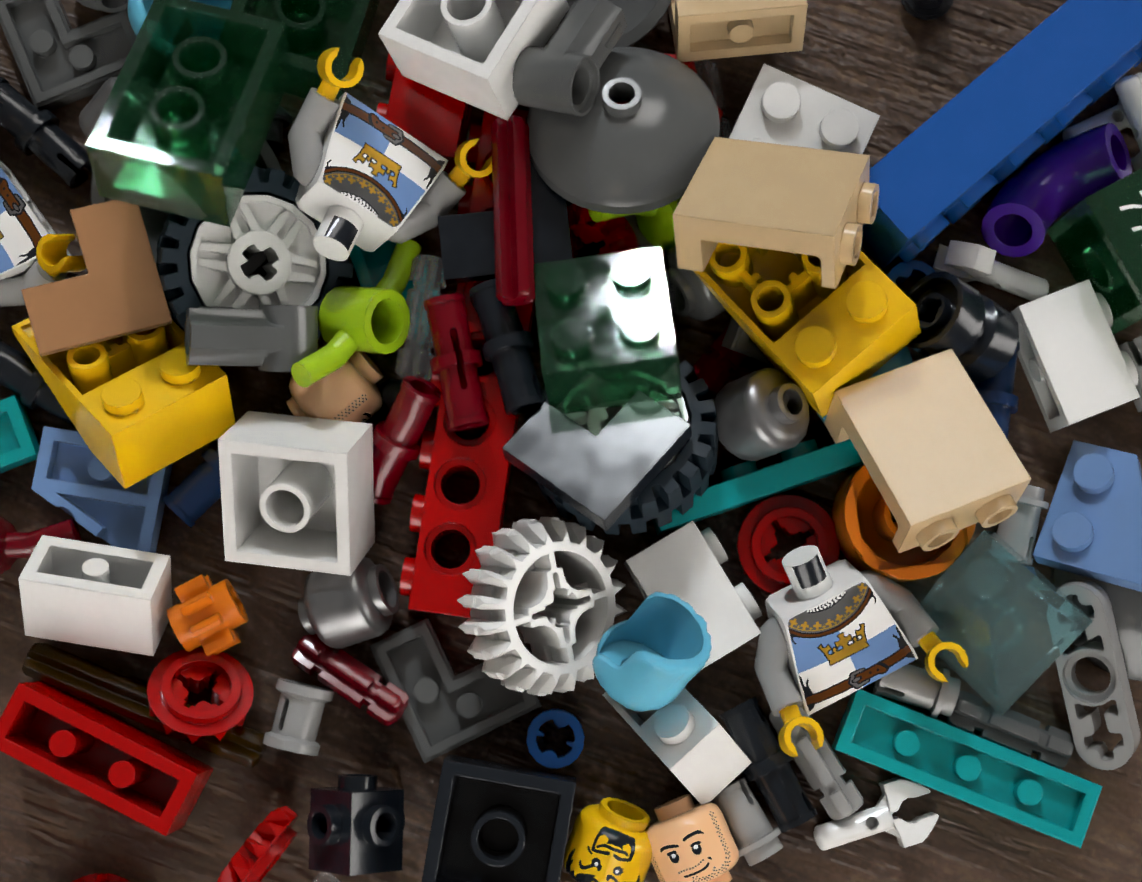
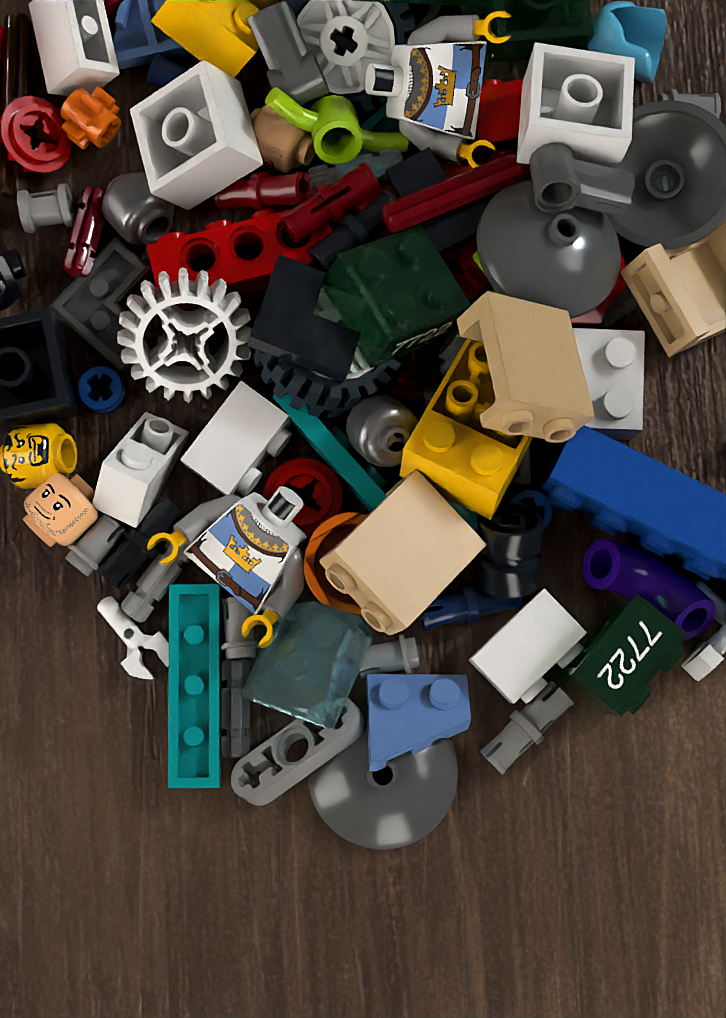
camera: 75 degrees right, 0 degrees up
(652, 653) = (178, 419): medium azure hair -> none
(978, 263) = (566, 549): white bar -> none

